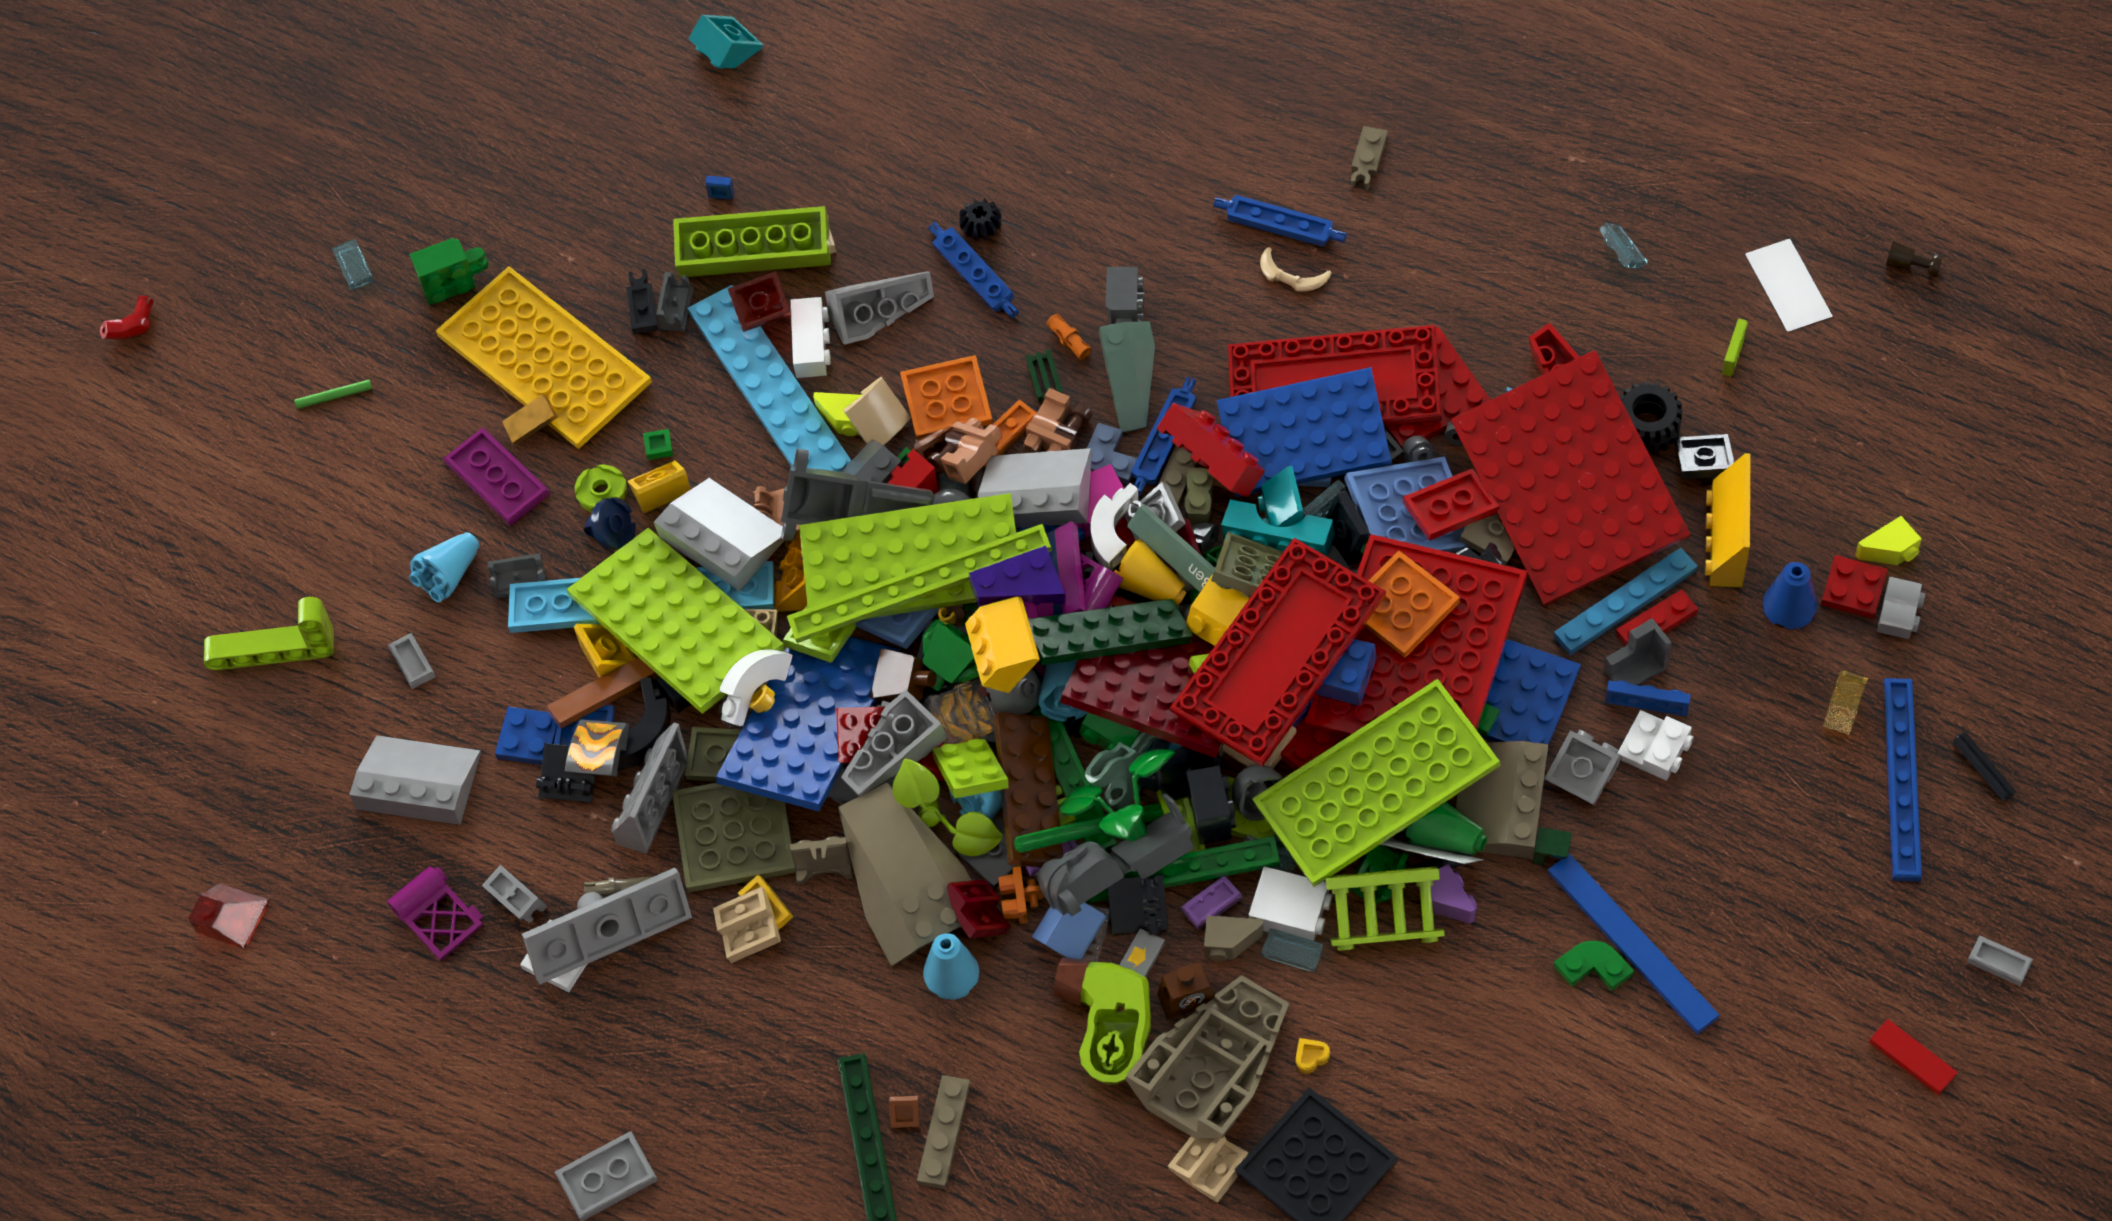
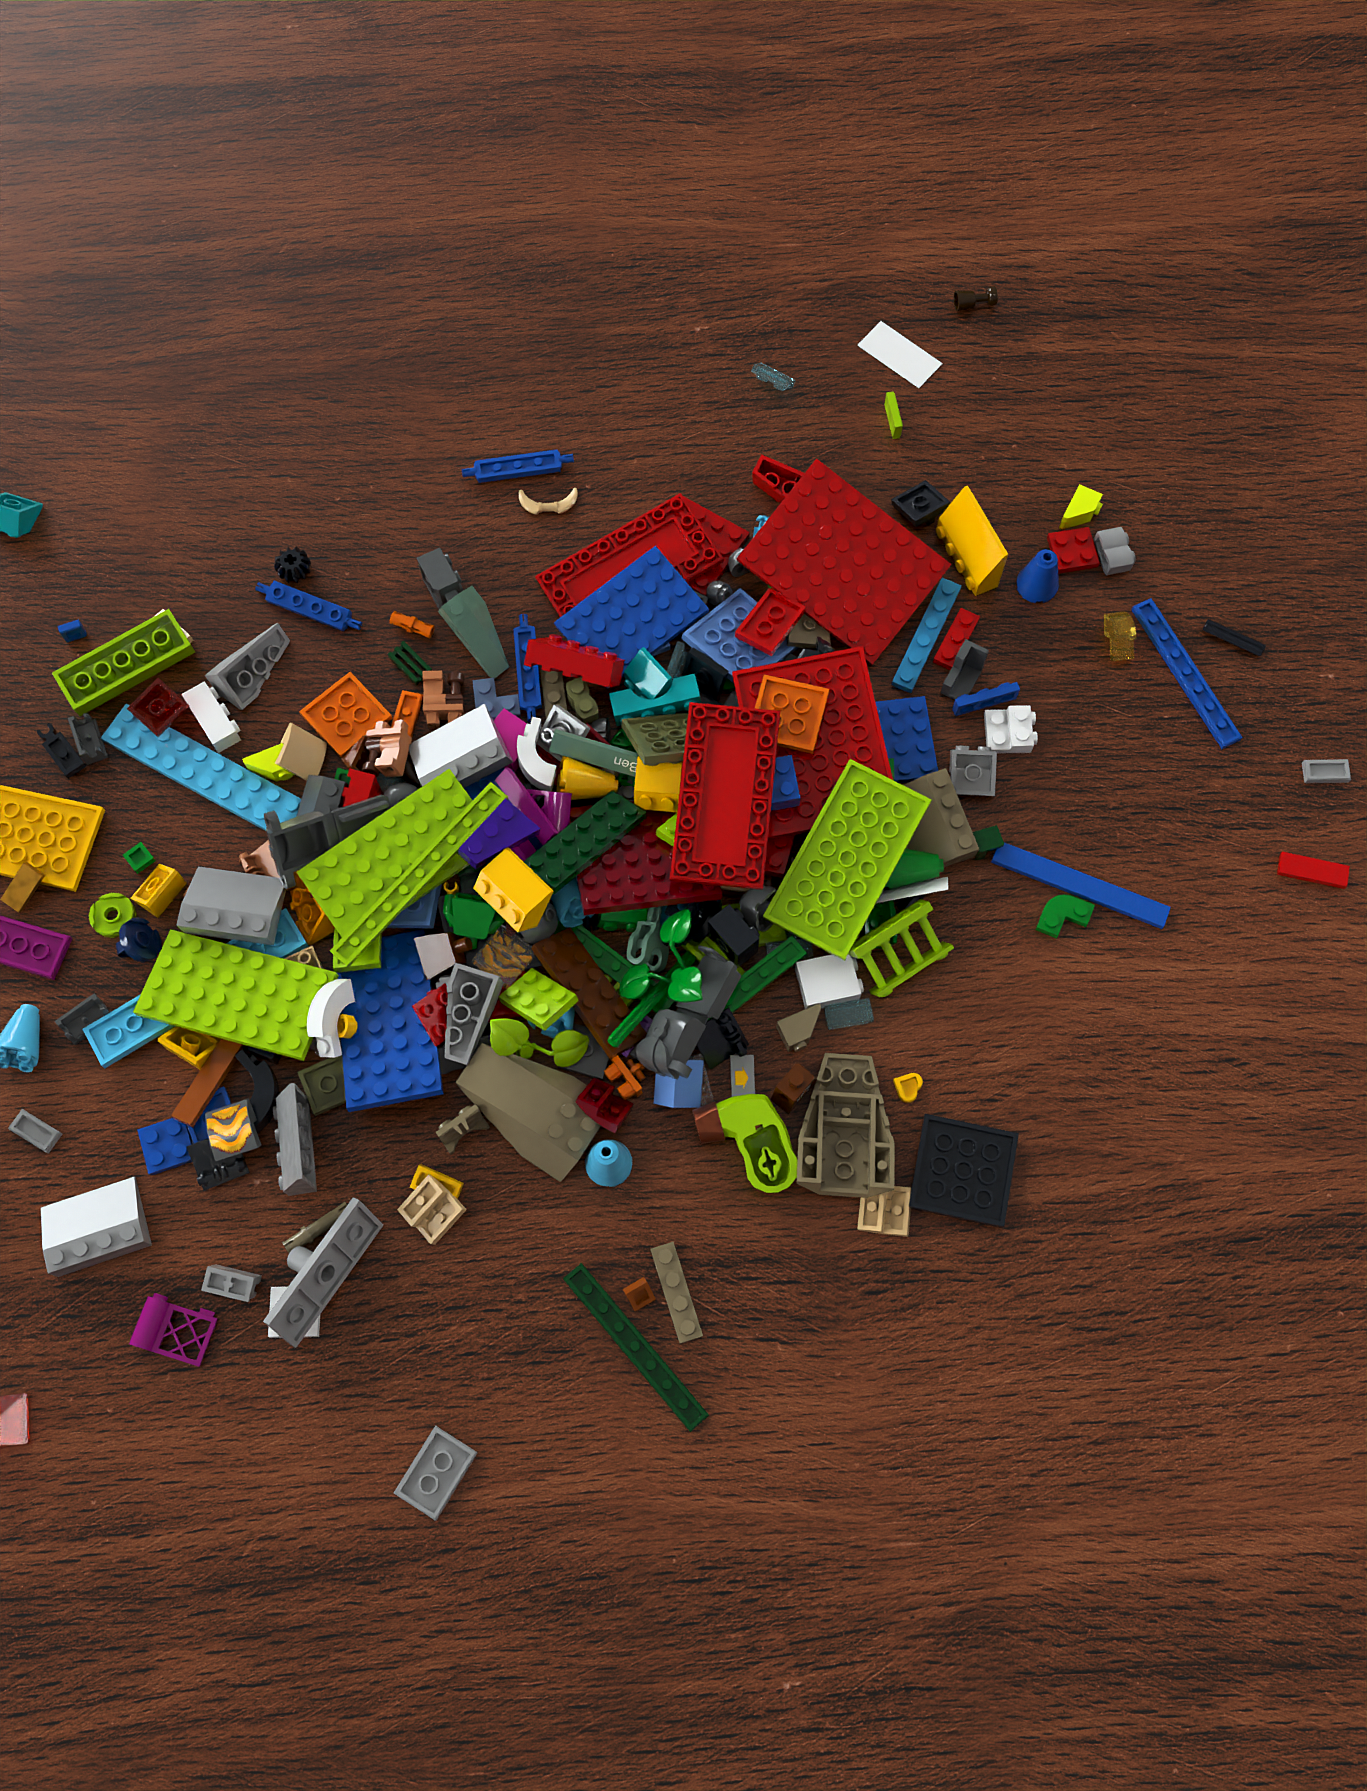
camera: 35 degrees left, 10 degrees up
(730, 836) = (377, 1146): olive plate -> none
(1211, 902) = (770, 1008): medium lavender plate -> none
(1368, 155) = (552, 389): dark tan plate -> none
(1450, 898) = (942, 916): medium lavender slope -> none
(1655, 401) = (873, 480): black tyre -> none

